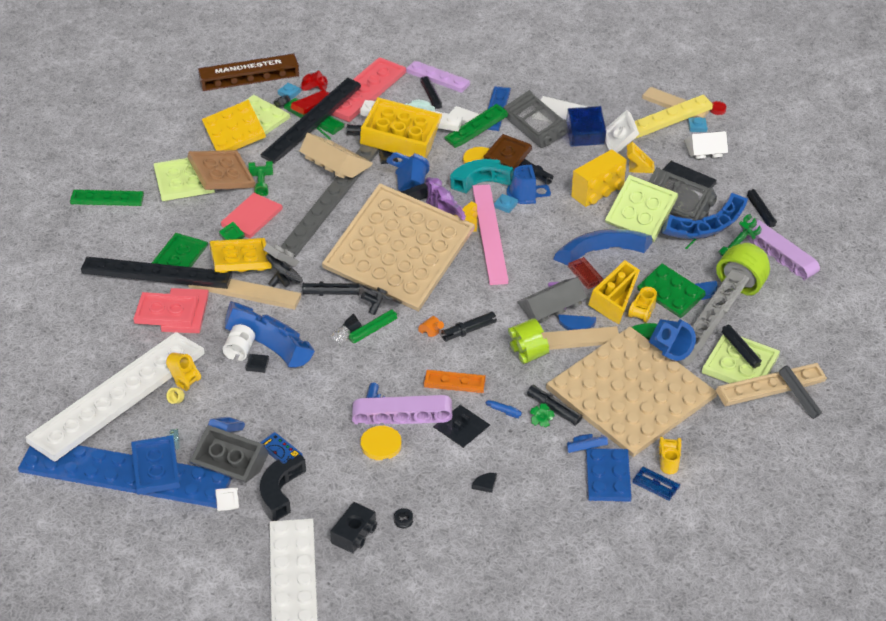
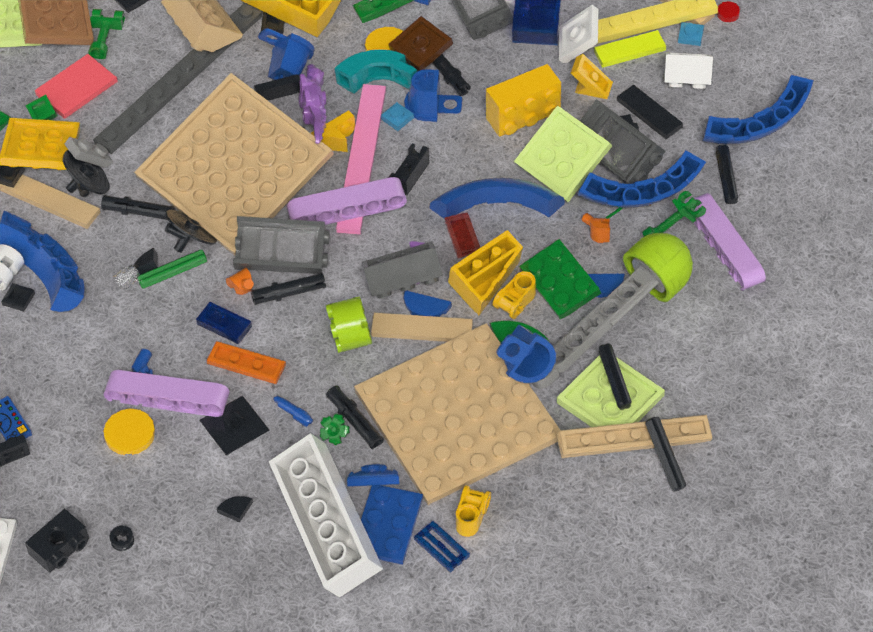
camera: 15 degrees right, 10 degrees up
(428, 356) = (224, 323): none -> clear blue plate
(454, 295) = (281, 245): none -> door
(493, 262) = (349, 202): none -> lavender beam
(529, 235) = (412, 167): none -> black hinge
(564, 473) = (325, 515): none -> white brick
(659, 138) = (630, 48): none -> neon yellow tile
(686, 254) = (598, 228): none -> orange piece
(757, 178) = (764, 122): none -> blue brick

